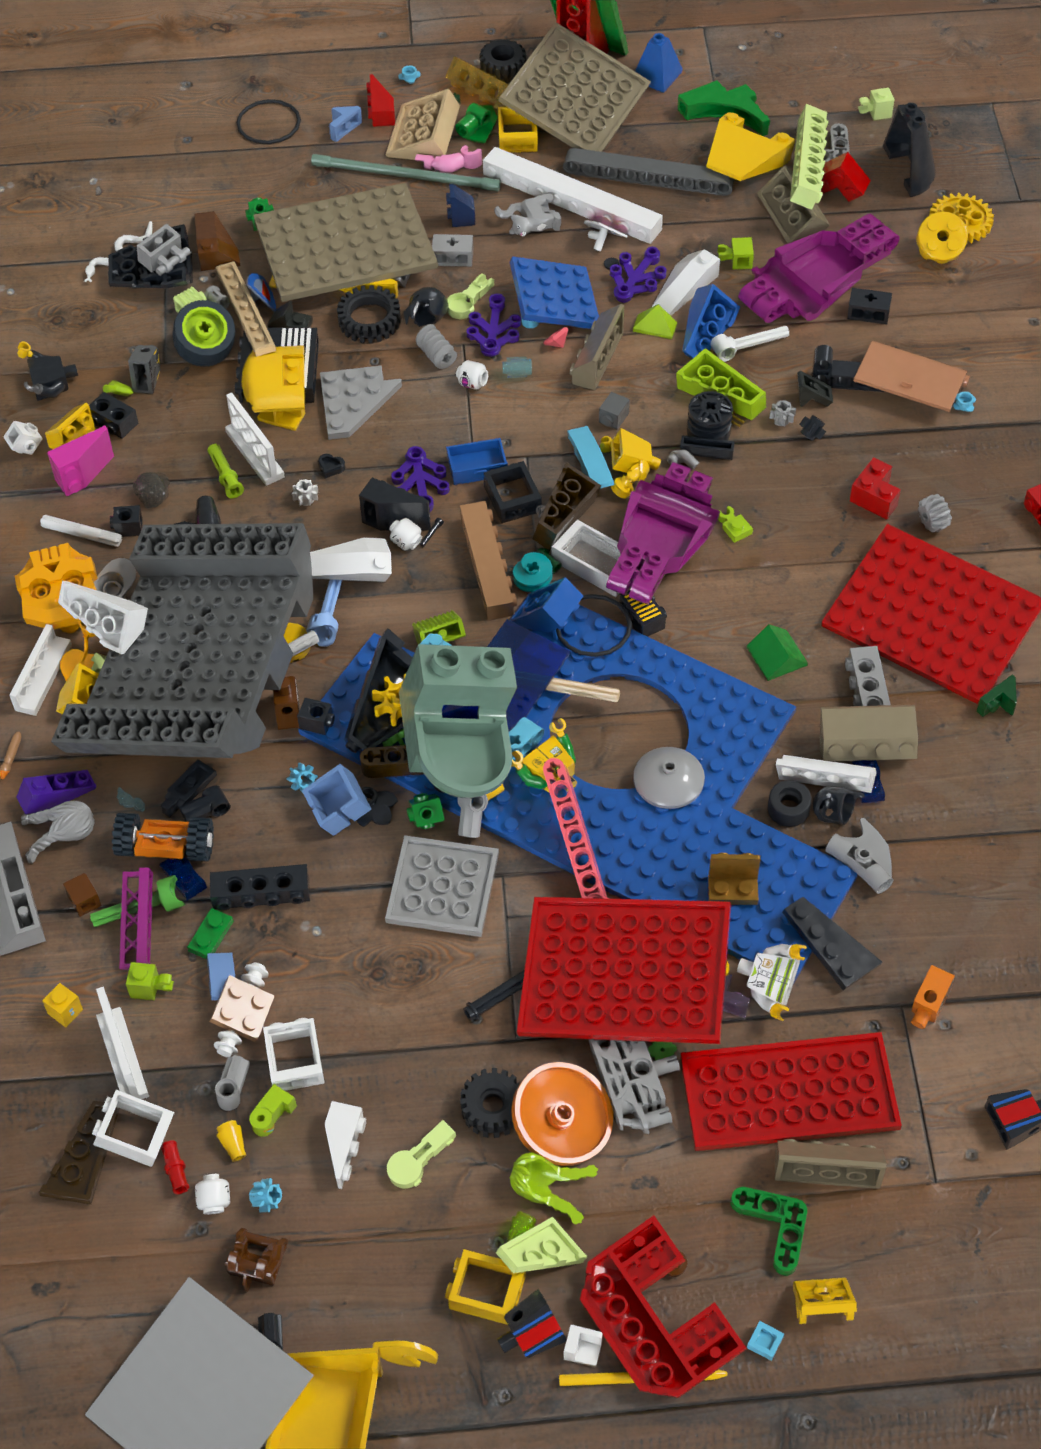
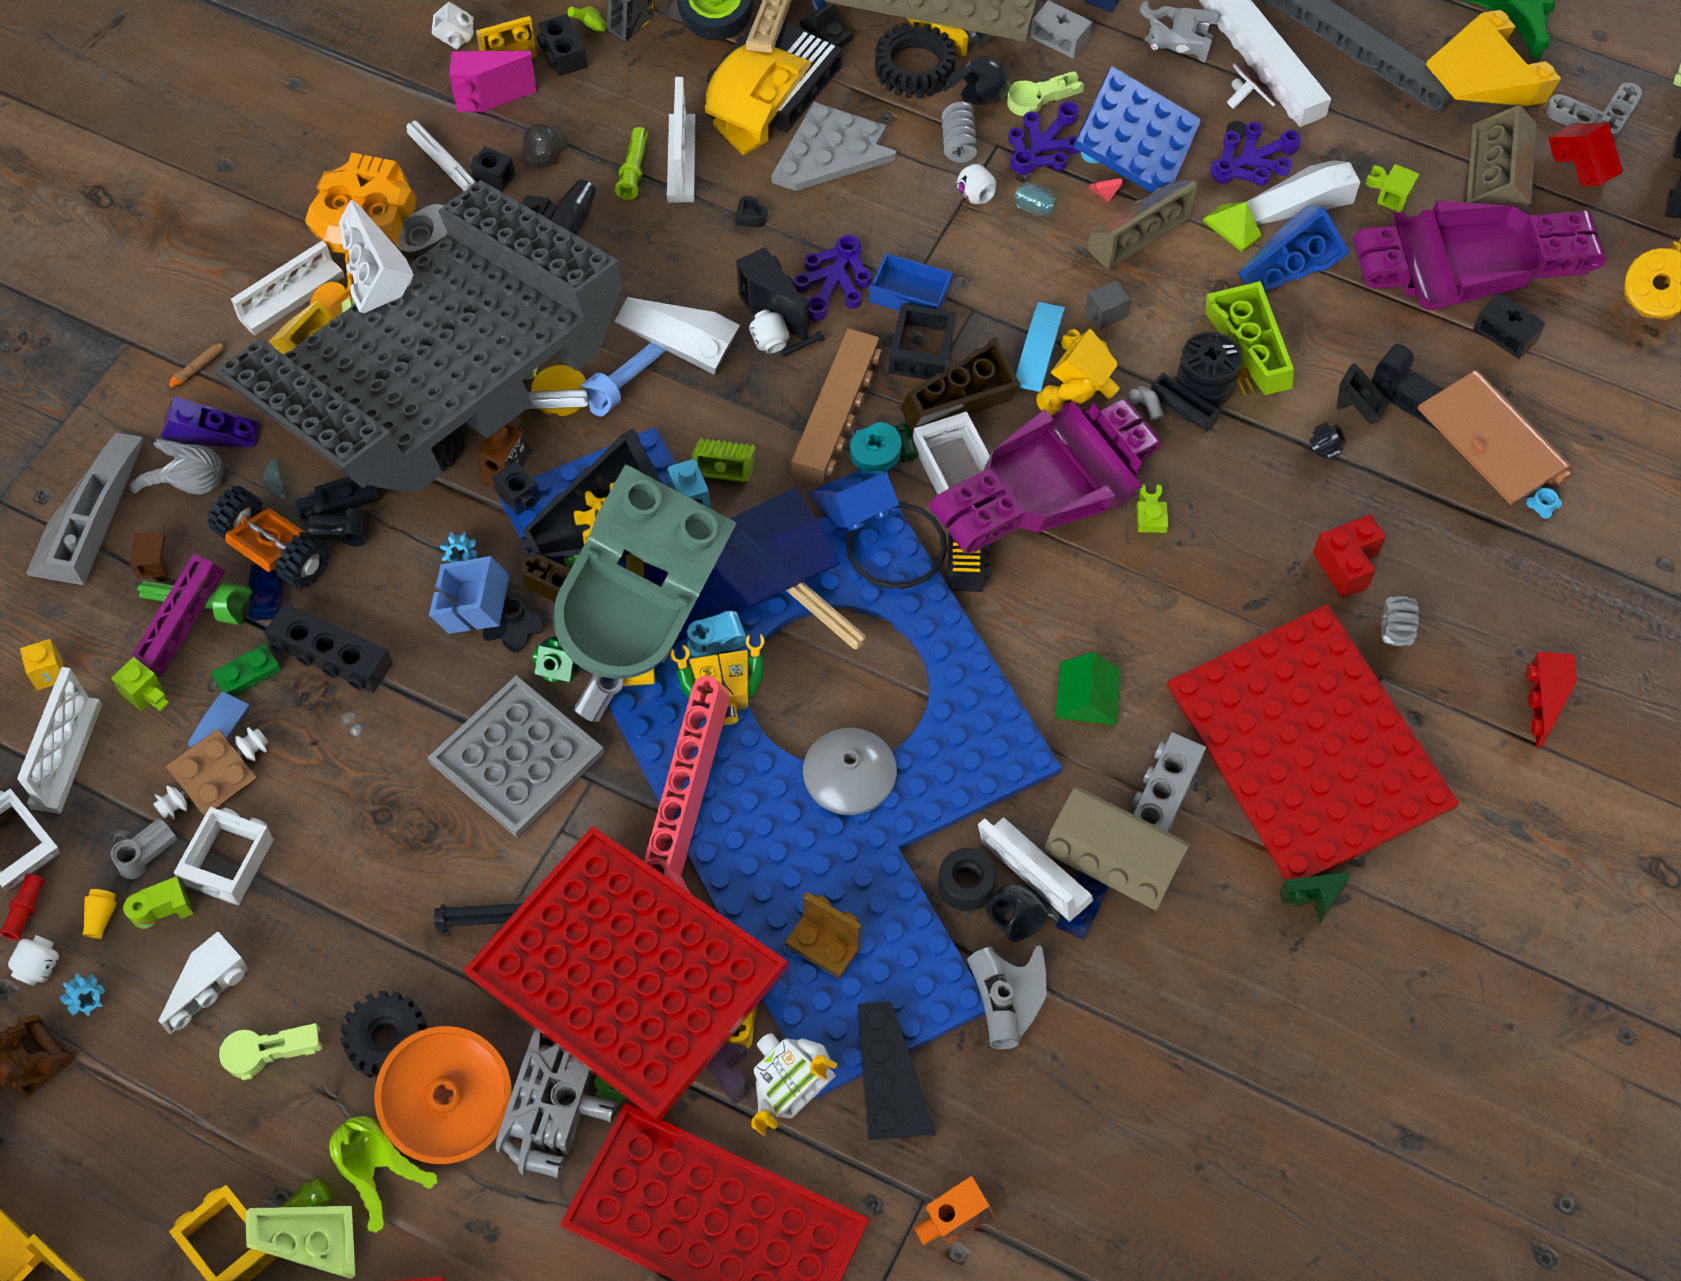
camera: 30 degrees right, 5 degrees up
(305, 492) = (697, 230): white gear -> none
(726, 347) = (1295, 292): white axle -> none
(782, 413) = (1305, 405): light grey gear -> none
(809, 157) = (1560, 109): yellowish green brick -> none

